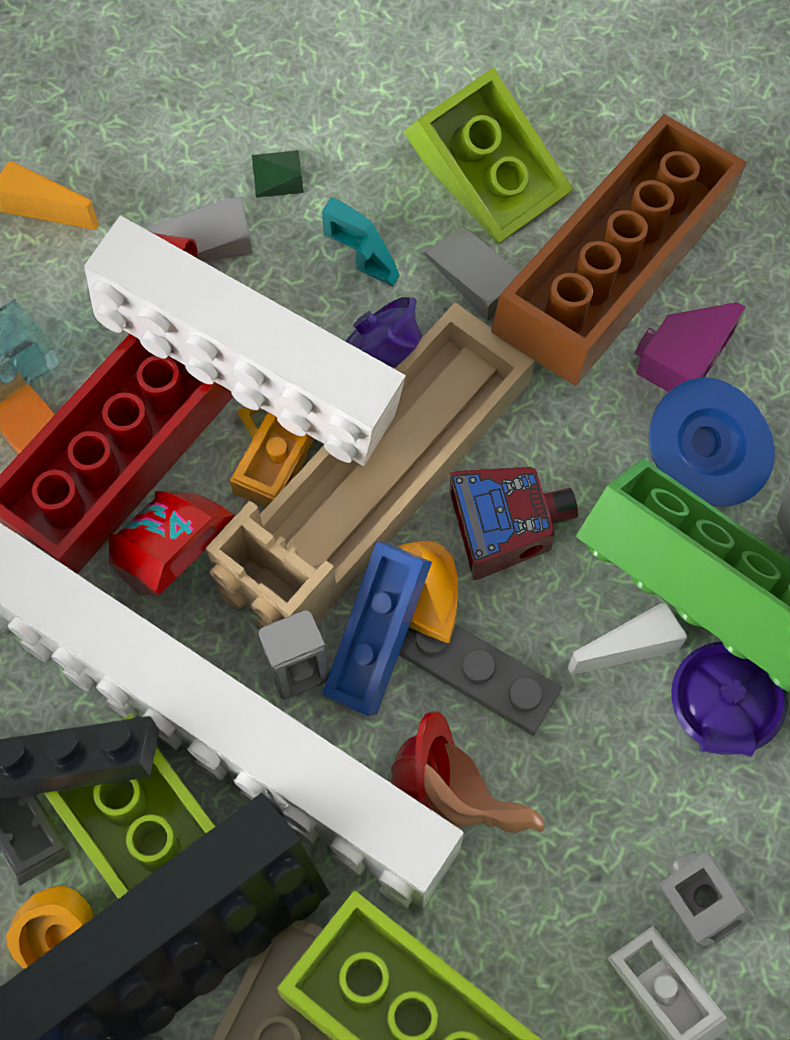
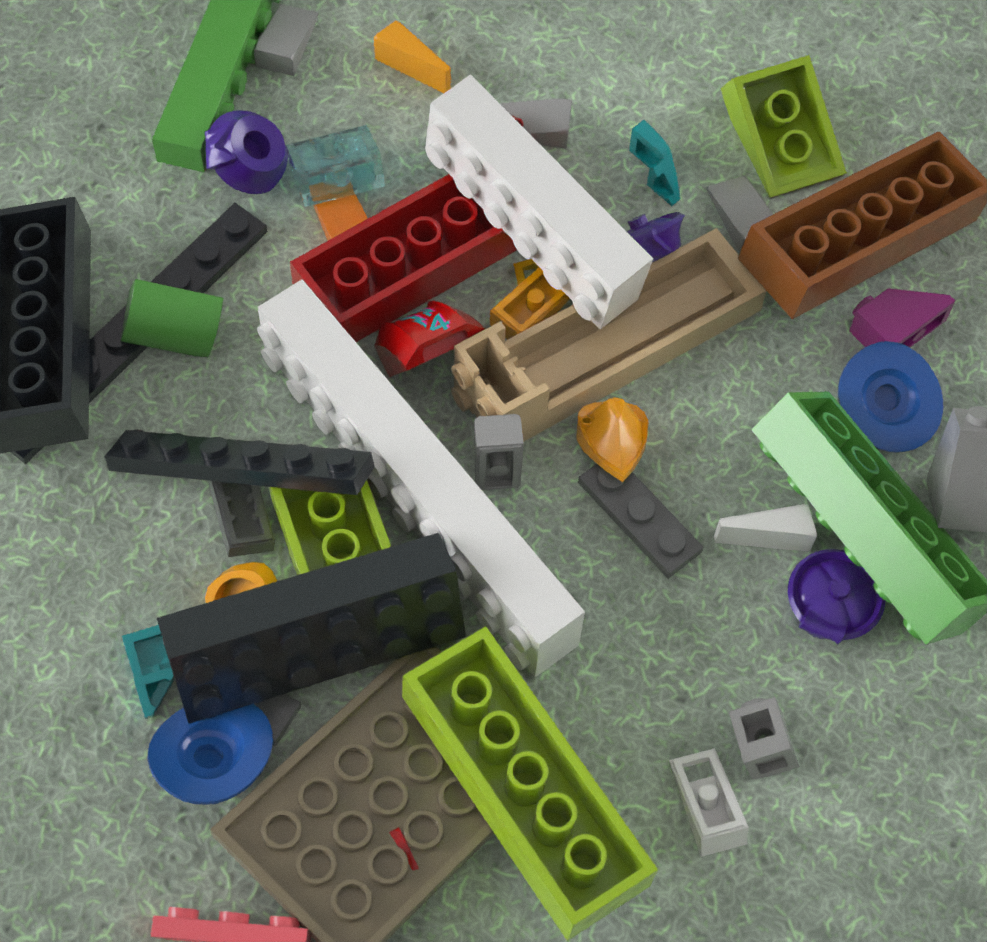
camera: 15 degrees right, 5 degrees down
(277, 173) = (607, 93): dark green slope -> none
(376, 628) = (568, 453): blue plate -> none
(450, 783) = (589, 582): piece -> none
(506, 516) = (703, 404): torso -> none

